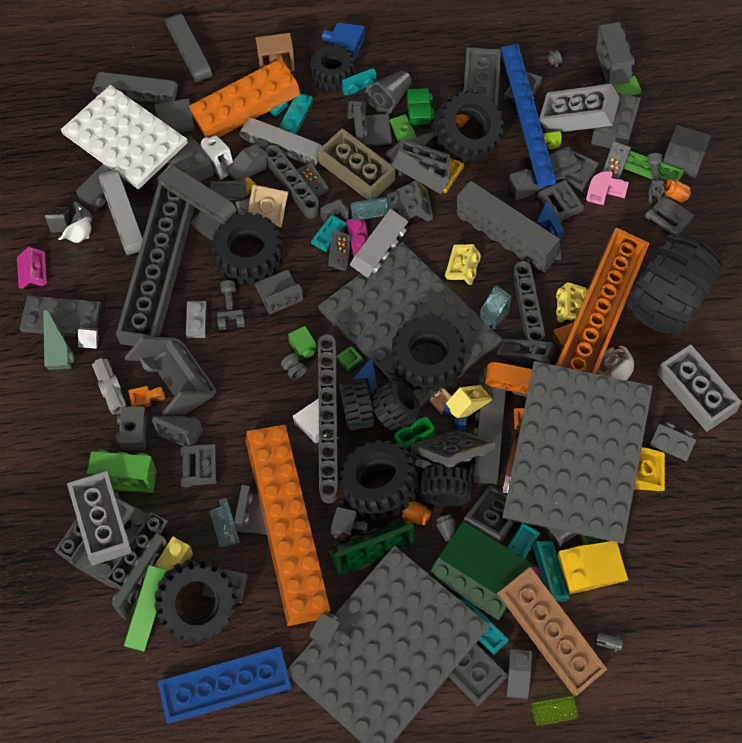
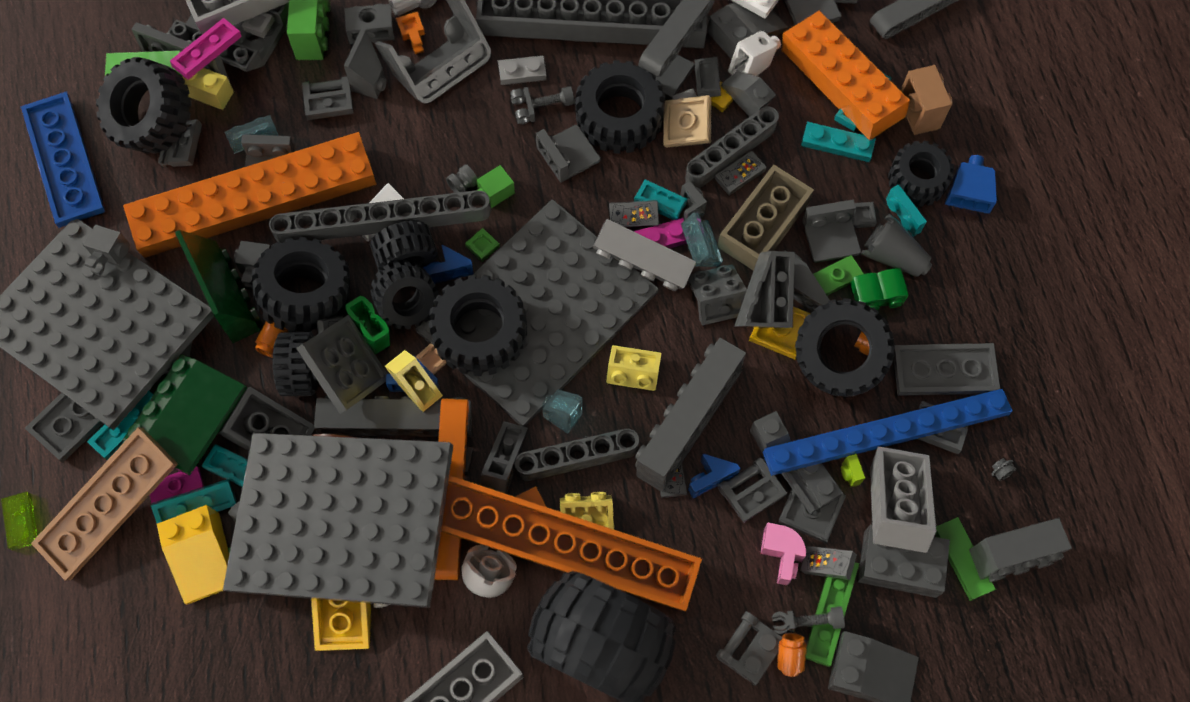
camera: 80 degrees right, 5 degrees up
(155, 539) = (205, 48): none -> dark pink plate
(289, 143) = (793, 125): light grey beam -> none
(447, 527) = (254, 376): dark grey cone -> none
(519, 673) = (64, 473): dark grey slope -> none
(609, 641) = (102, 583): dark grey pin -> none
(673, 441) = (386, 660): dark grey bracket -> none

